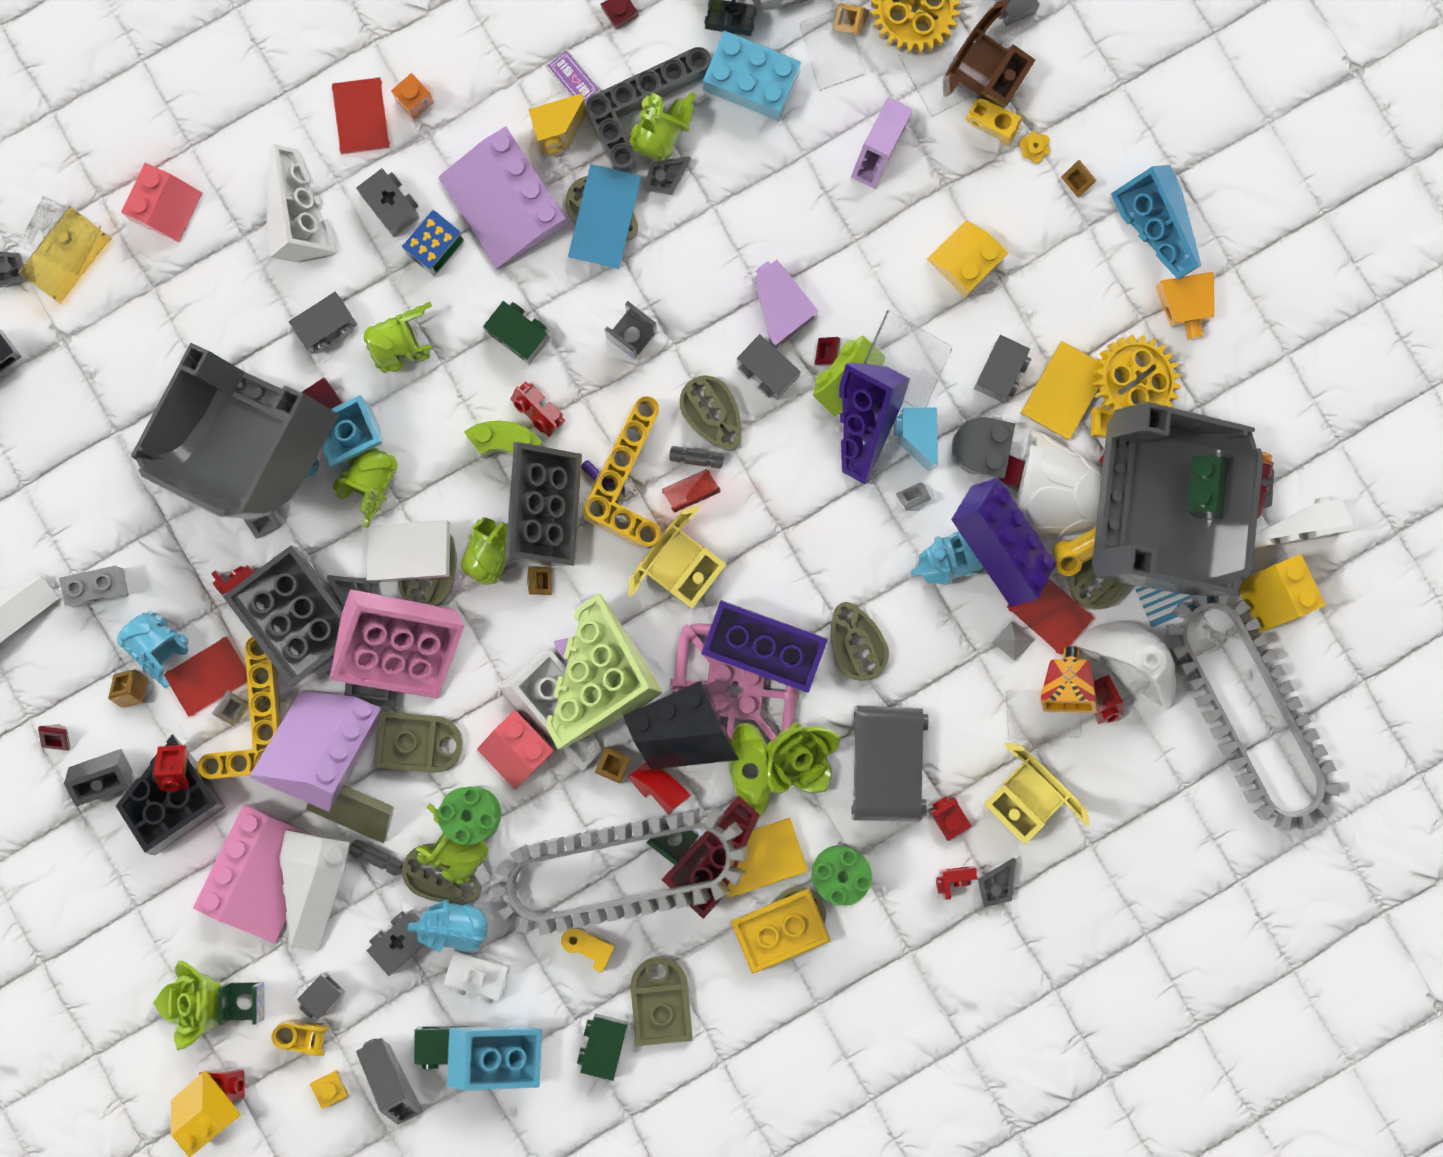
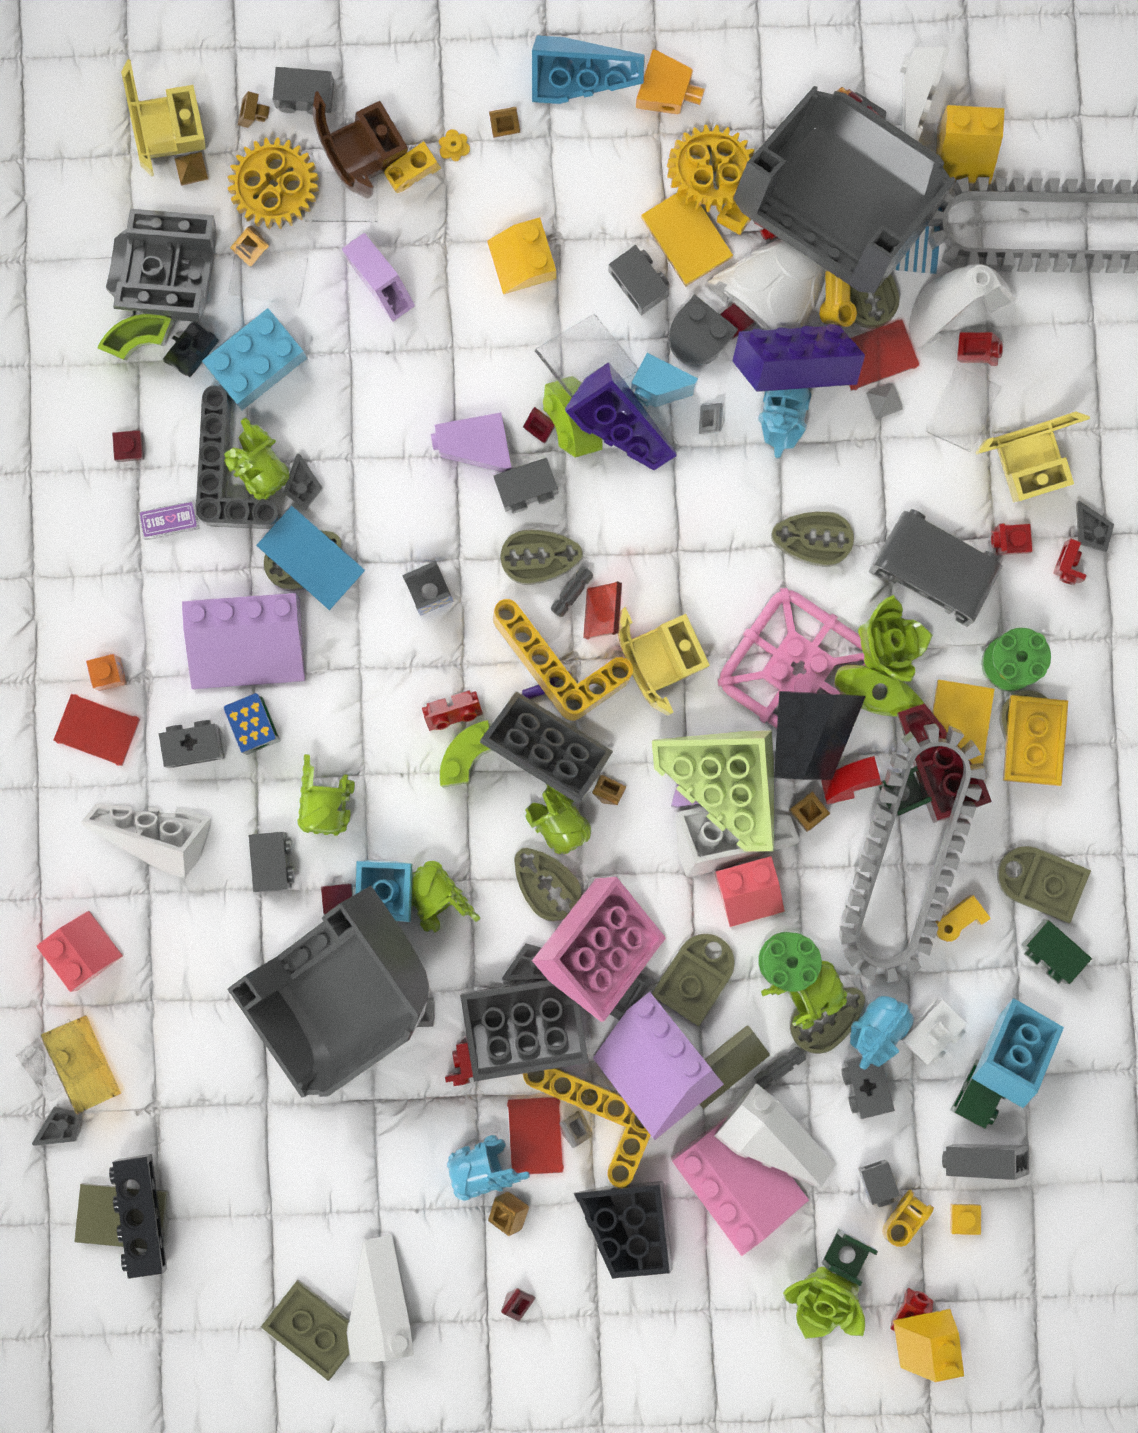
camera: 55 degrees left, 0 degrees up
(93, 586) = (399, 1196): light grey brick -> none
(98, 777) = (577, 1281): dark grey brick -> none
(171, 768) = (606, 1208): red bracket -> none
(408, 551) = (520, 893): white tile -> none
(516, 331) = (372, 691): dark green brick -> none
(558, 123) = (203, 556): yellow slope -> none
(764, 646) = (777, 618): dark purple brick -> none
(1069, 684) = (952, 369): torso -> none
(1207, 487) = (843, 155): dark green brick -> none

